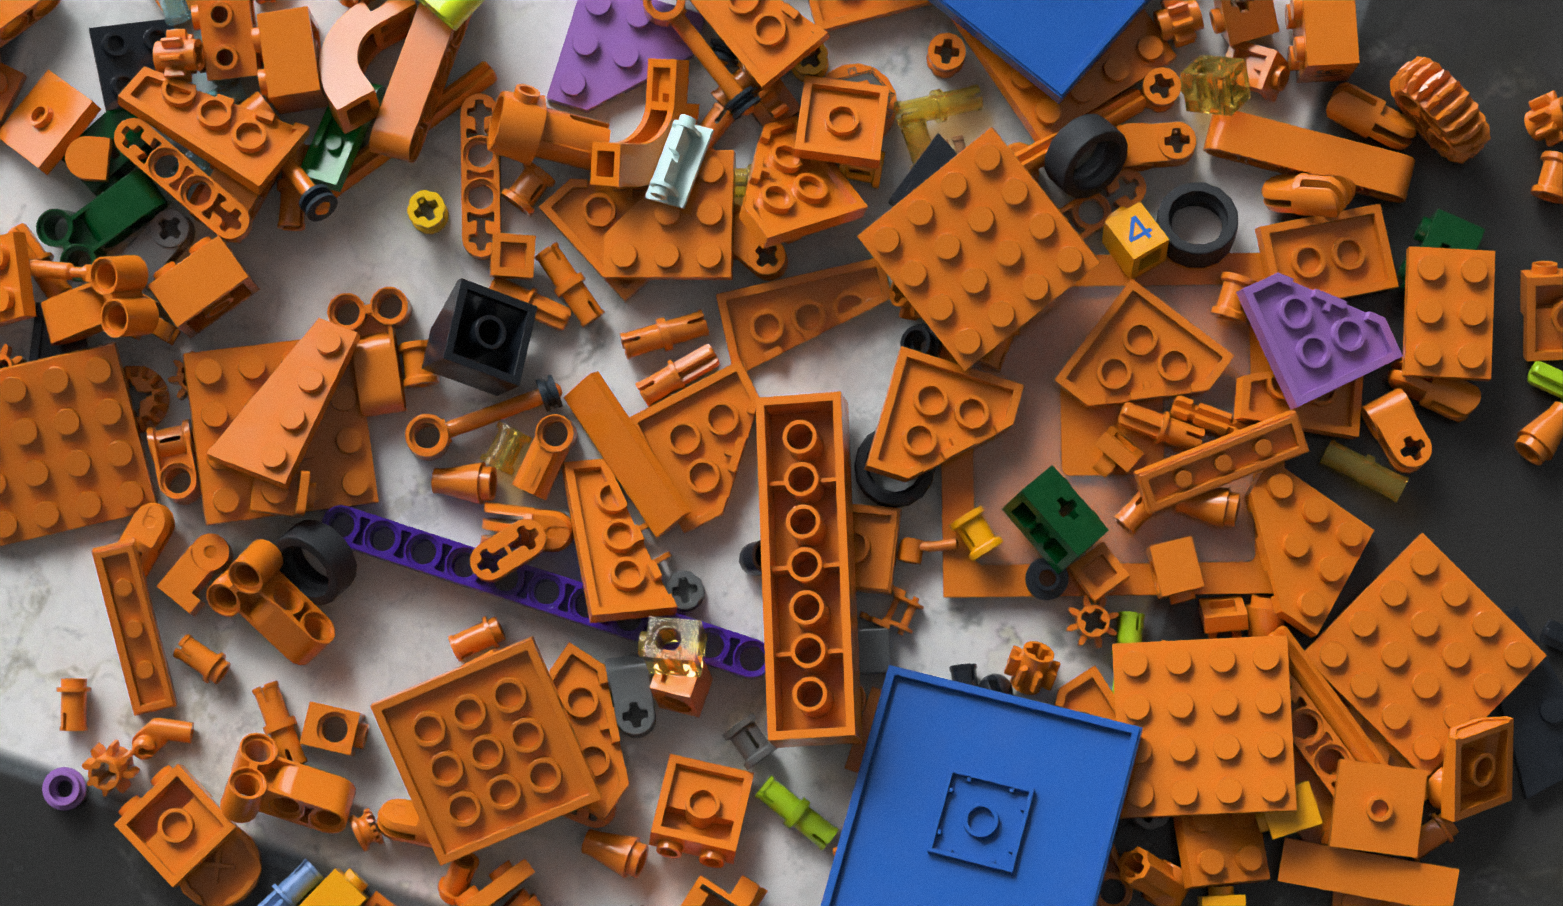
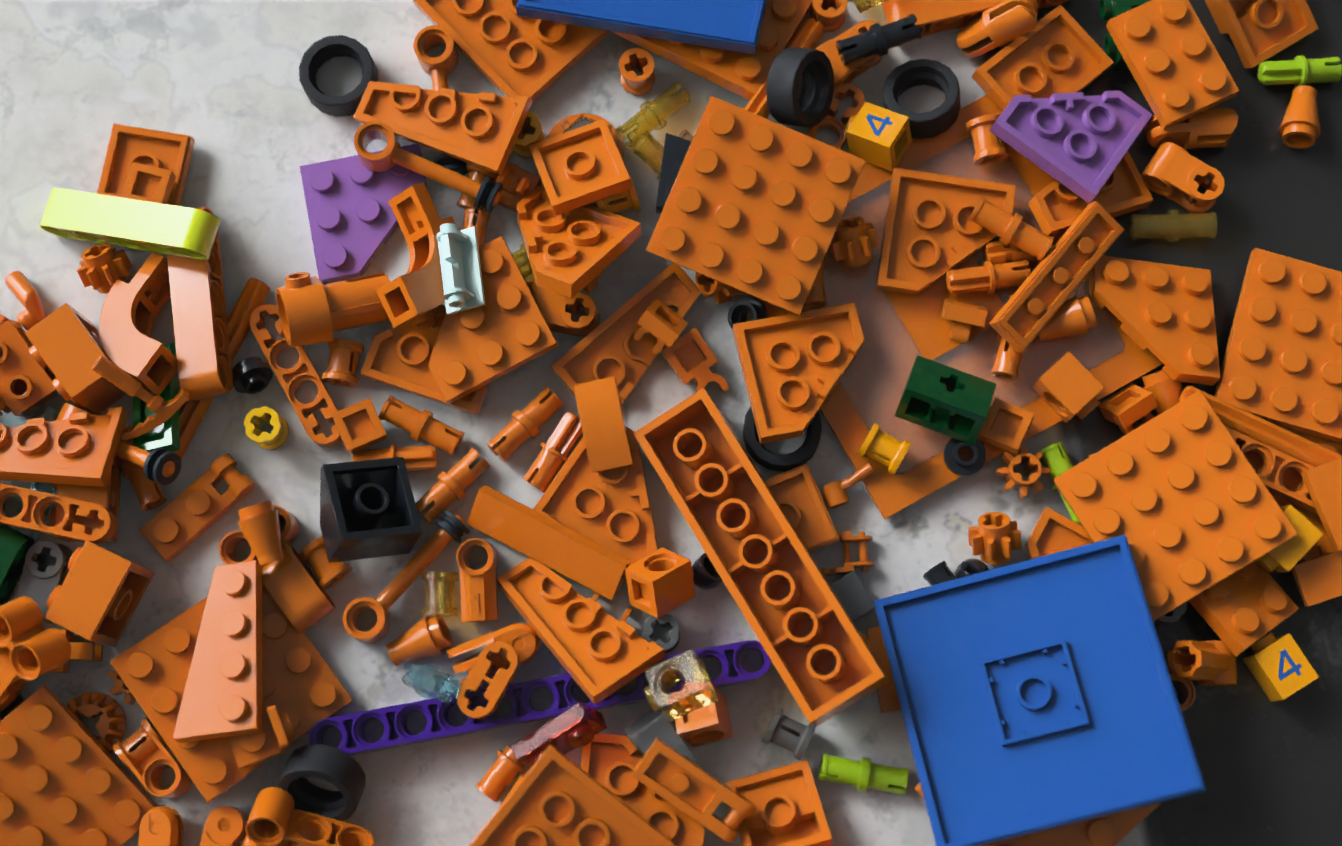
camera: 25 degrees left, 5 degrees down
(327, 251) = (197, 508): none -> orange plate
(328, 116) = (133, 387): none -> orange piece
(377, 307) = (262, 531): none -> orange cone
(439, 155) = (251, 375): none -> black plate
(456, 523) = (431, 681): none -> clear light blue axle
(551, 632) = (565, 732): none -> clear red plate
(567, 355) = (451, 485): none -> orange pin
(636, 743) = (692, 789): none -> orange plate
(708, 545) = (660, 582): none -> orange brick
(733, 375) = (603, 424): none -> orange slope
(836, 310) = (661, 323): none -> orange tile
(847, 356) = (691, 360): none -> orange plate
(1055, 328) = (854, 241): none -> orange gear
(1183, 150) = (878, 39): none -> black pin
(1204, 395) = (1011, 229): none -> orange pin

